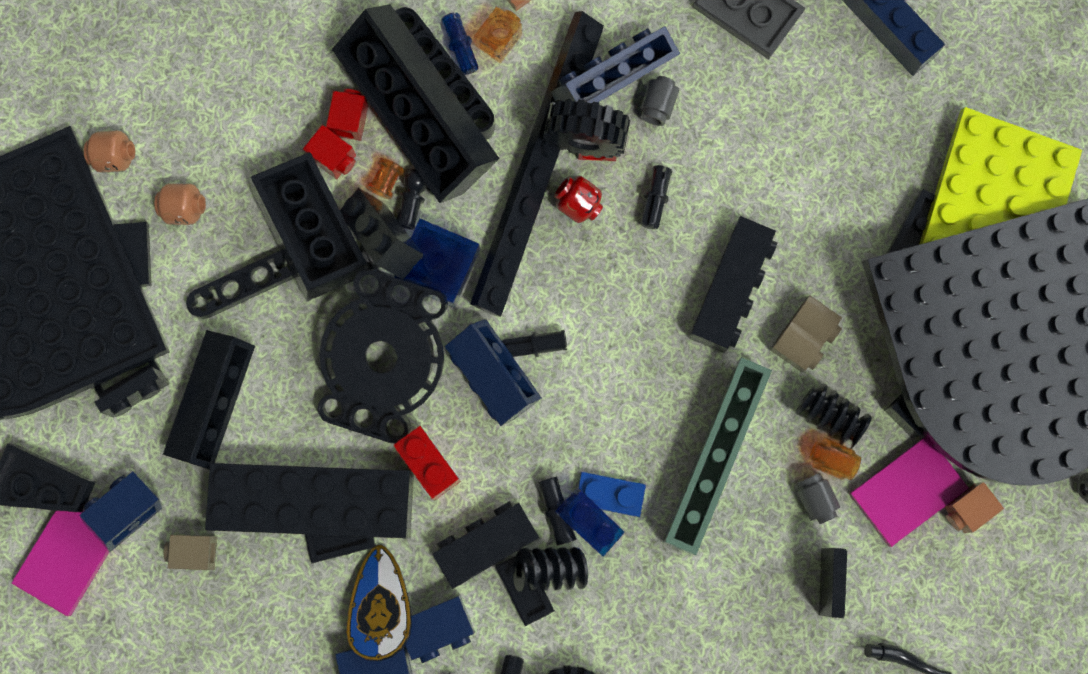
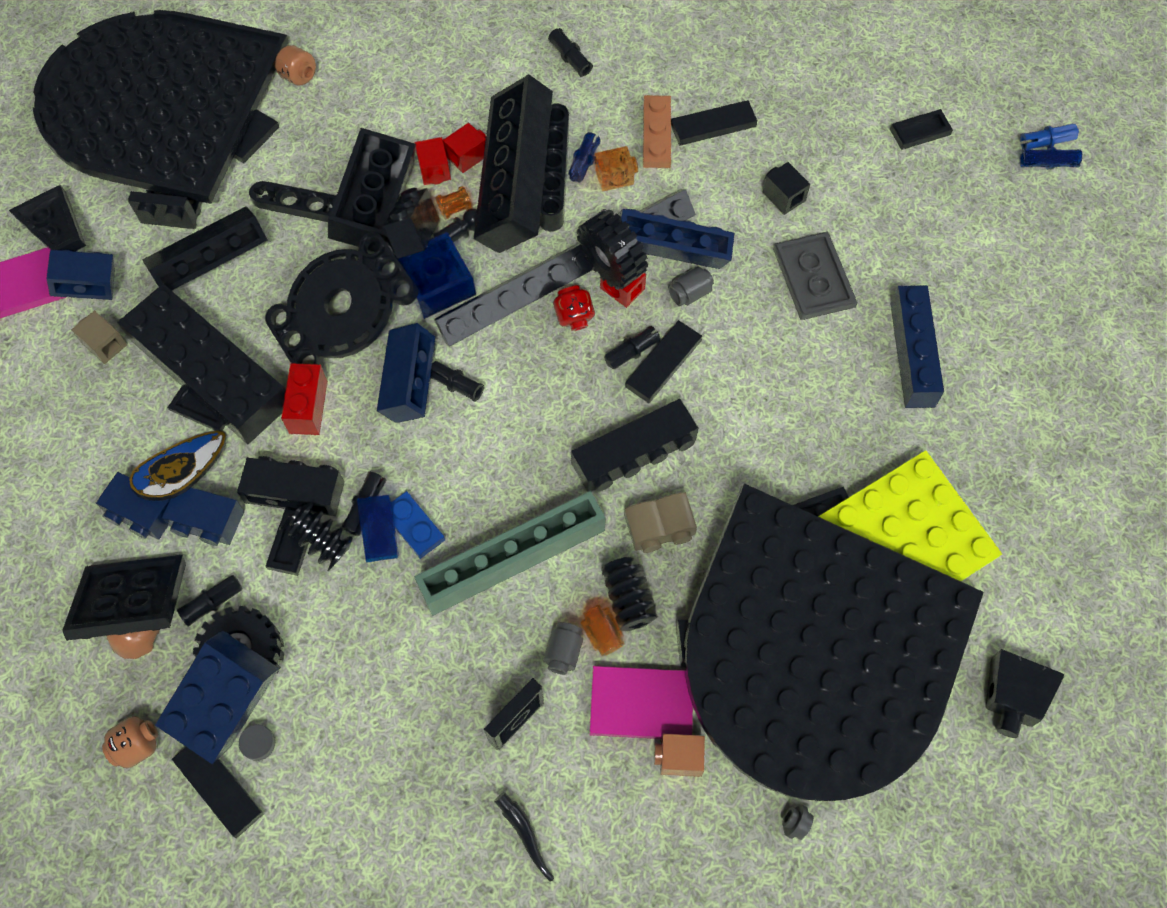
camera: 40 degrees right, 15 degrees down
(179, 204) = (305, 123): nougat head -> none
(690, 188) = (663, 361): none -> black tile

